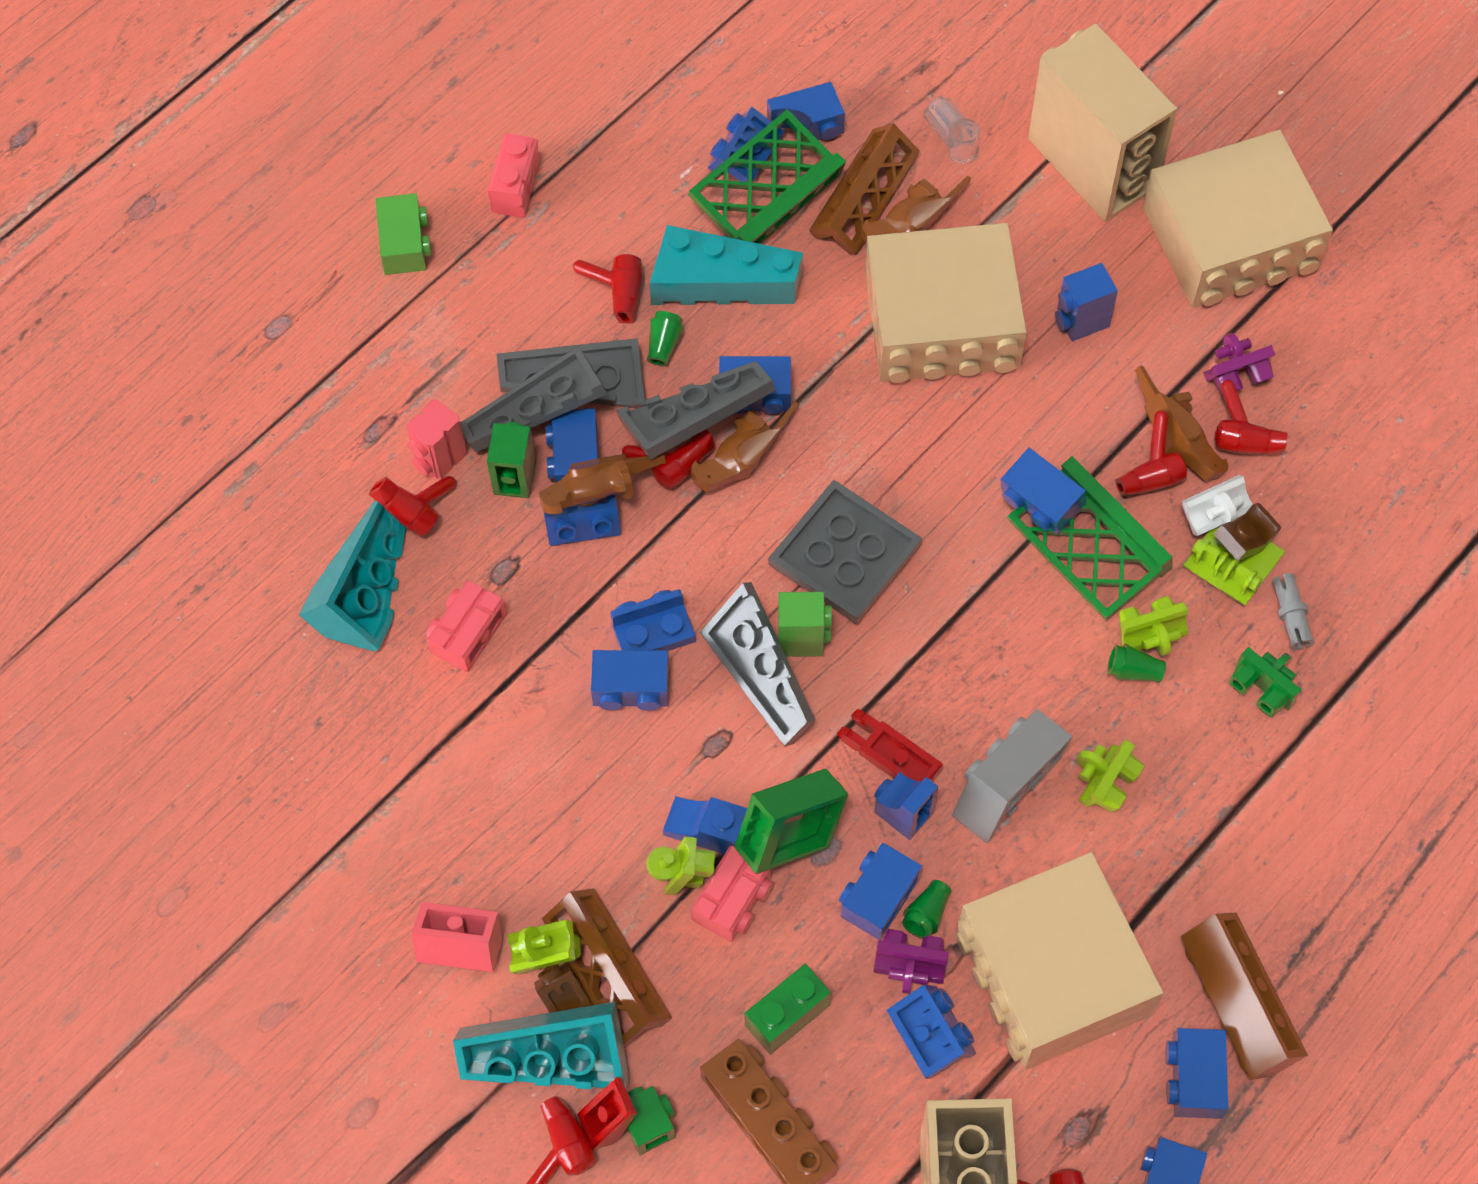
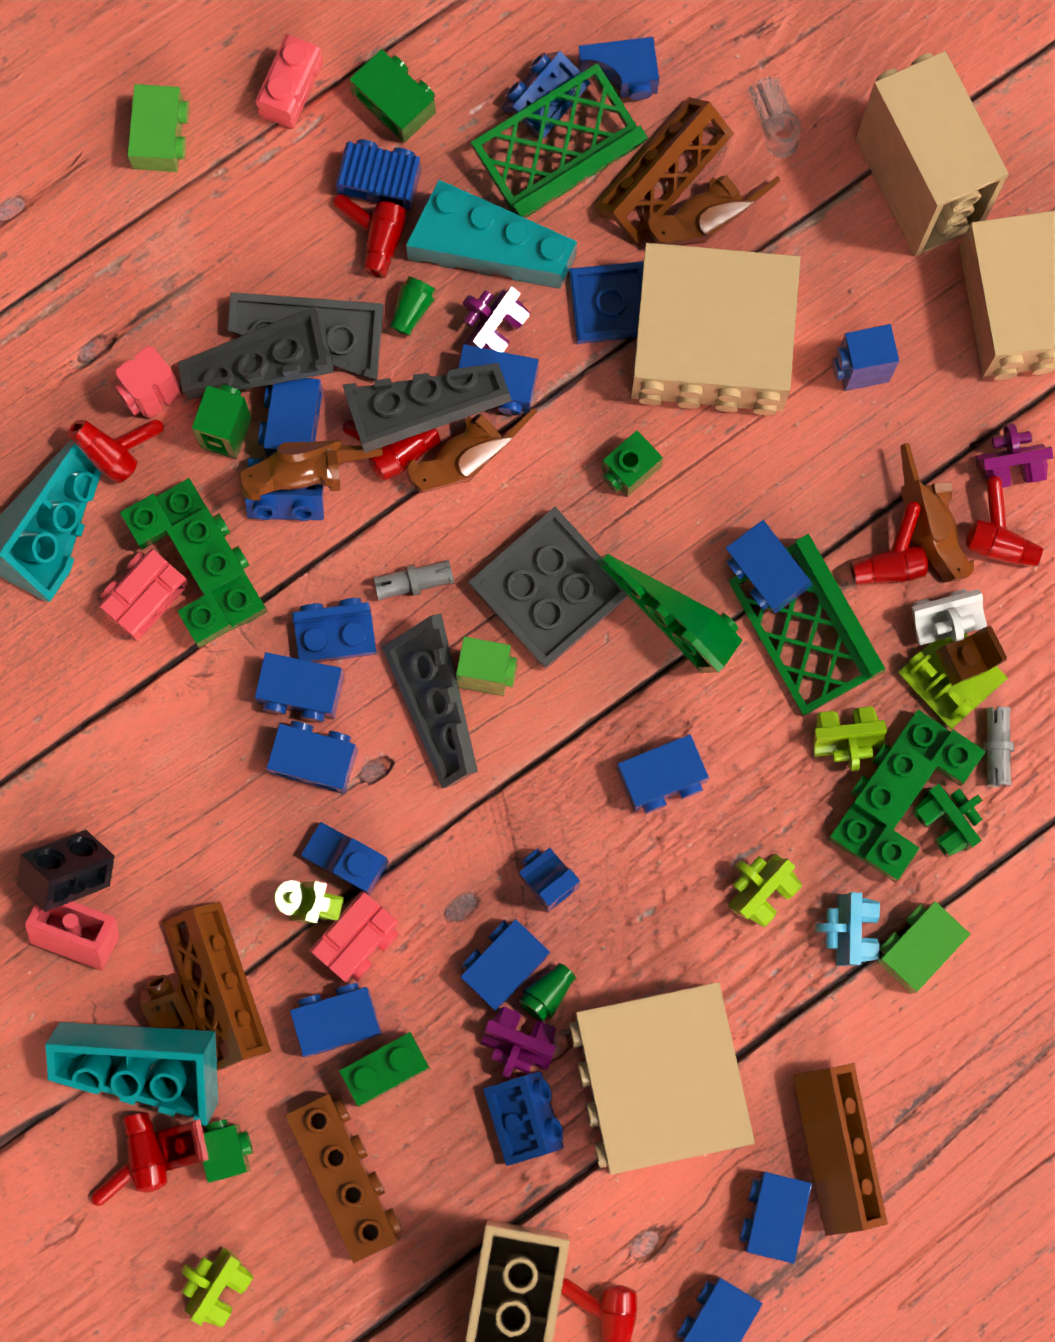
camera: 10 degrees right, 15 degrees up
(440, 879) = (65, 870): none -> black brick
(519, 580) = (201, 541): none -> green bracket
(543, 946) = (156, 959): lime hips -> none
(607, 234) = (378, 173): none -> blue brick
(609, 171) = (393, 95): none -> green brick
(656, 739) = (312, 757): none -> blue brick
(716, 568) = (413, 580): none -> light grey pin
(729, 974) = (336, 1020): none -> blue brick
(749, 324) = (504, 308): none -> hips
(765, 837) = (426, 882): green window -> none
(838, 306) = (606, 301): none -> blue tile
(890, 749) = (550, 820): red hinge -> none
(895, 432) = (631, 464): none -> green brick
(977, 553) = (694, 629): none -> green wedge
(989, 691) = (663, 774): none -> blue brick
(1009, 772) = (664, 867): light grey wedge -> none
(1133, 664) = (818, 773): green cone -> none
(1193, 697) = (886, 796): none -> green bracket
(1195, 796) = (844, 929): none -> medium azure hips
(1271, 798) = (922, 946): none -> bright green brick

